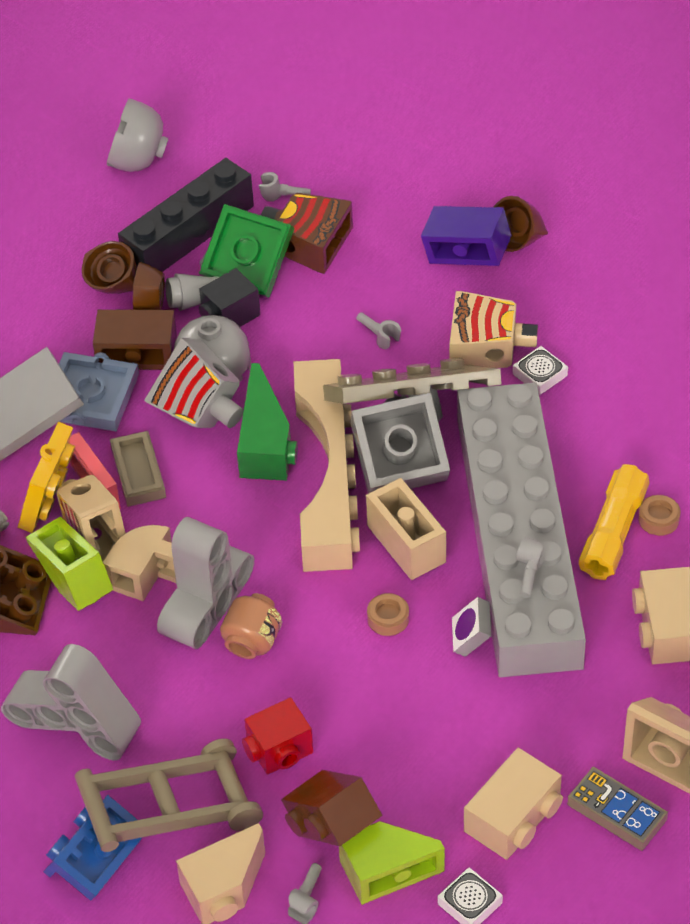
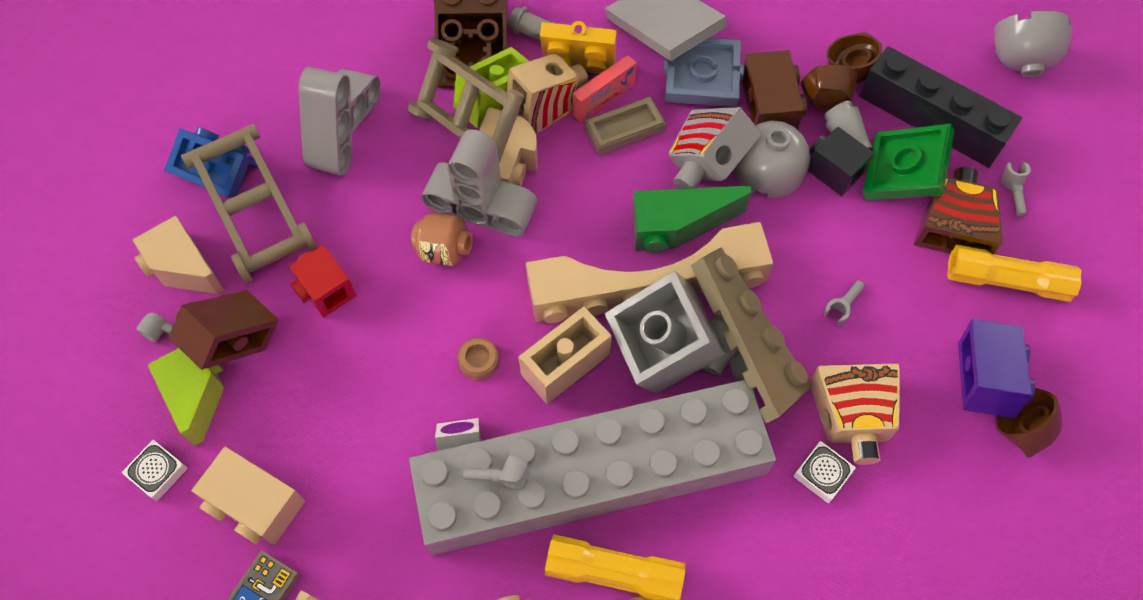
camera: 80 degrees right, 15 degrees up
(34, 581) = (424, 107): none -> dark tan piece
(364, 225) = (1043, 278): none -> yellow axle

